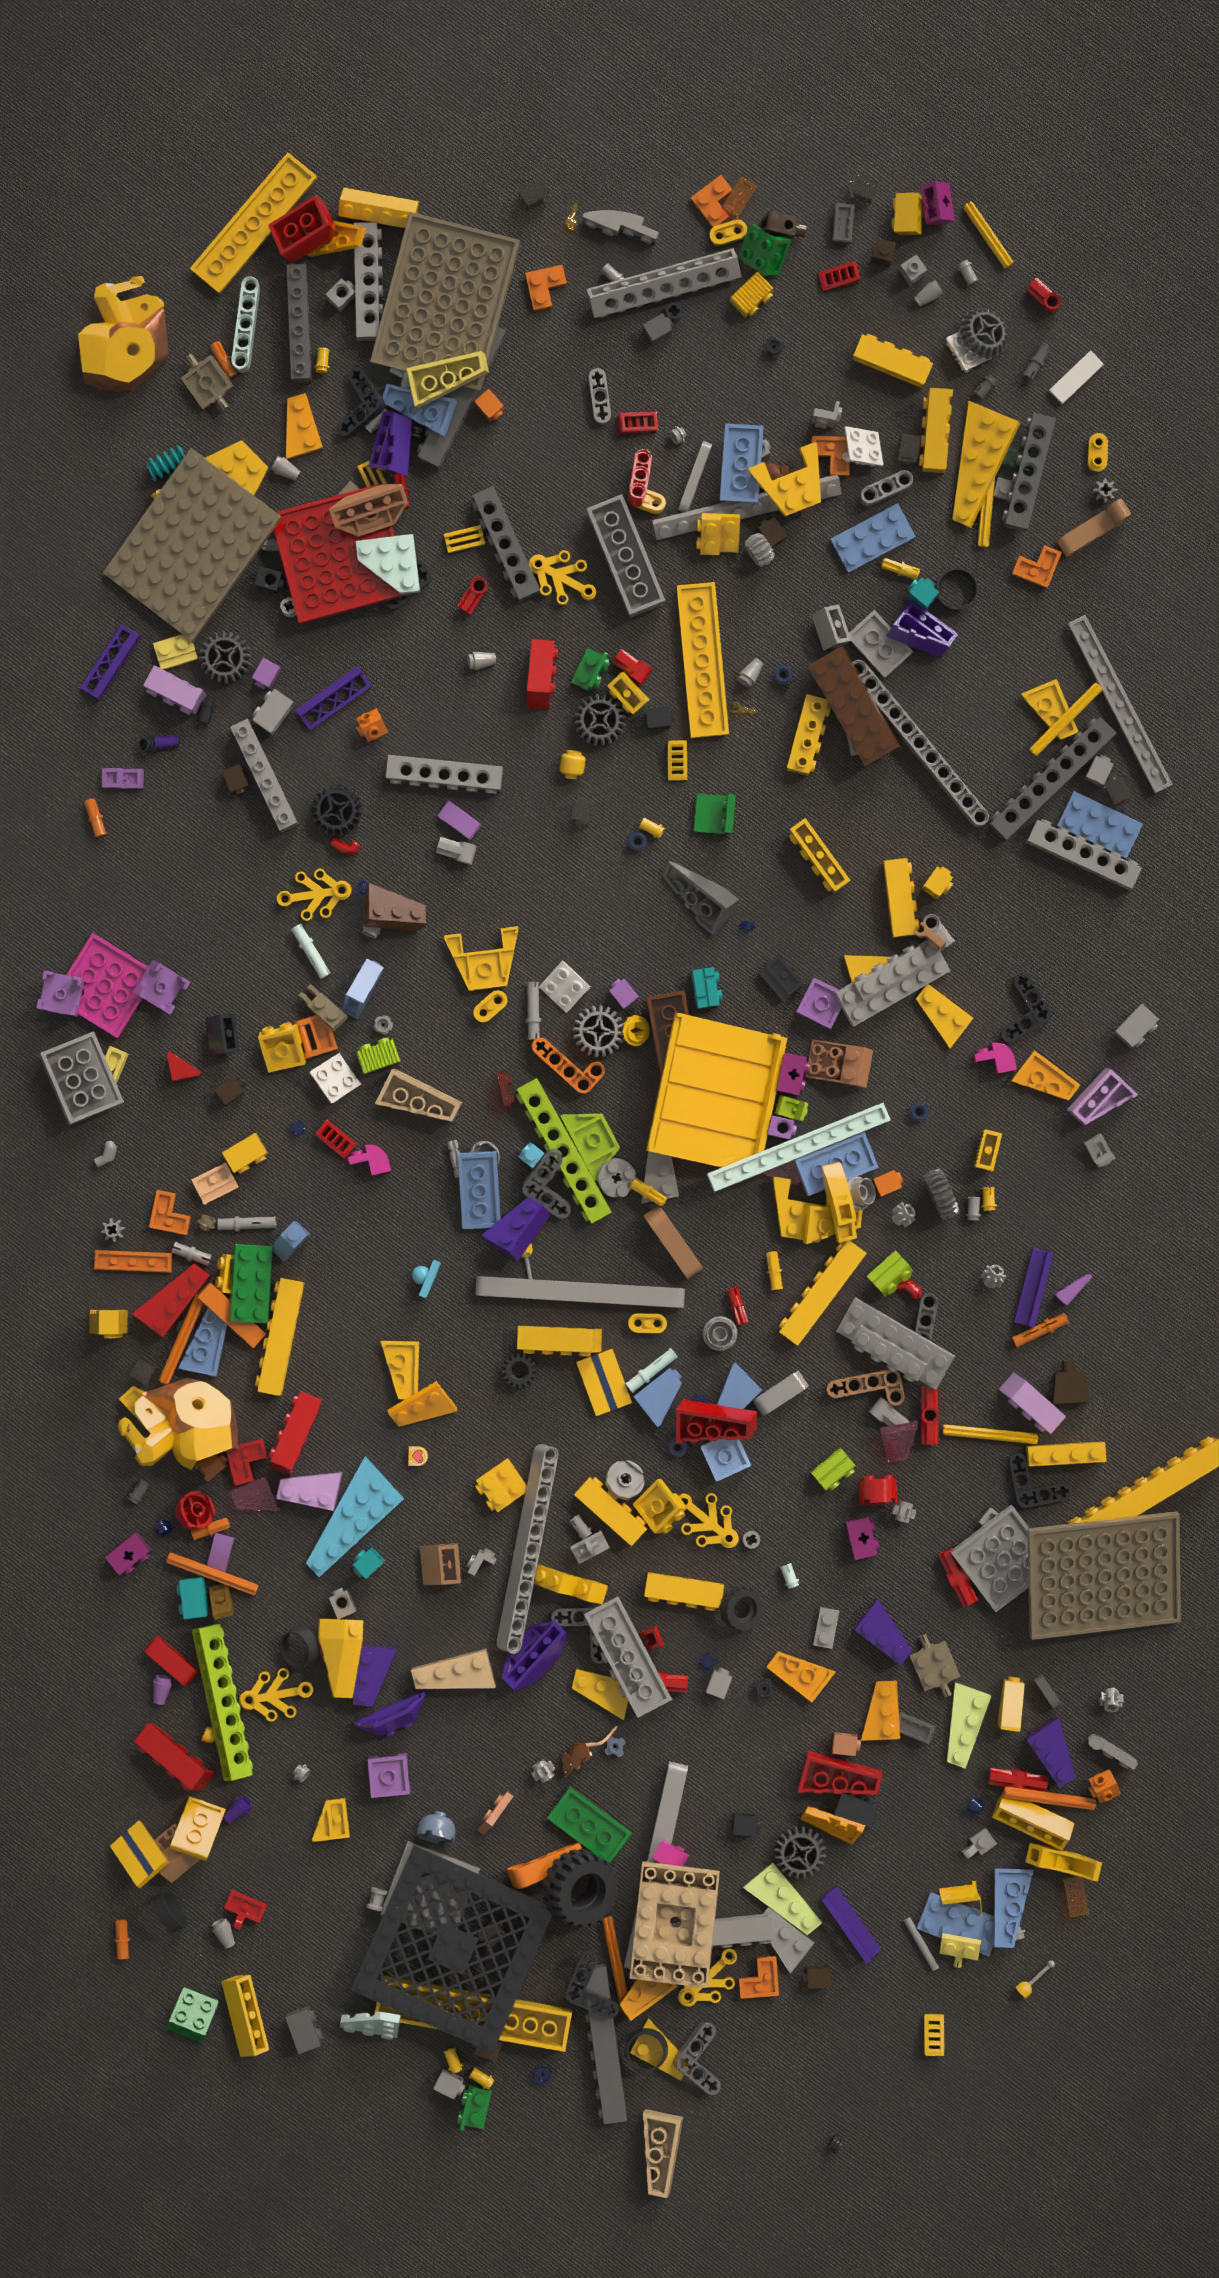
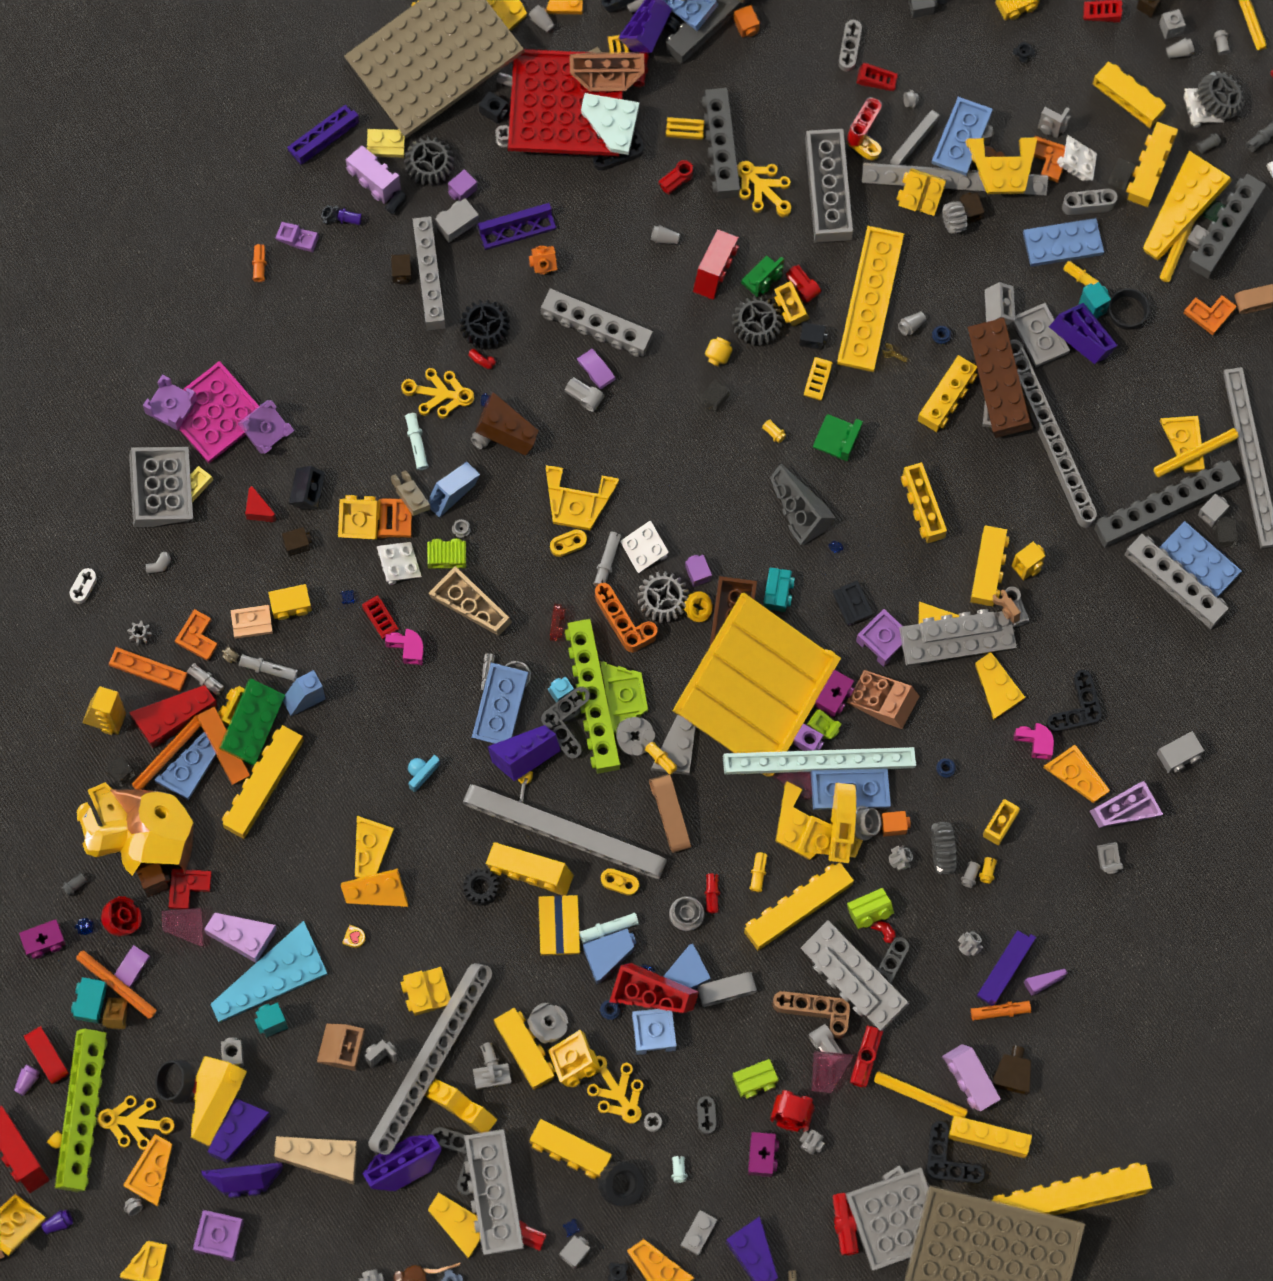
camera: 15 degrees right, 15 degrees down
(46, 1201) = (87, 587): none -> white beam
(211, 1529) = (129, 941): orange axle -> none
(295, 1433) = (243, 875): red wedge -> none
(305, 1735) = (150, 1171): none -> light orange wing
(637, 835) = (756, 434): dark blue plate -> none
(651, 1638) = (522, 1184): red slope -> none
(794, 1519) = (711, 1115): none -> dark grey beam

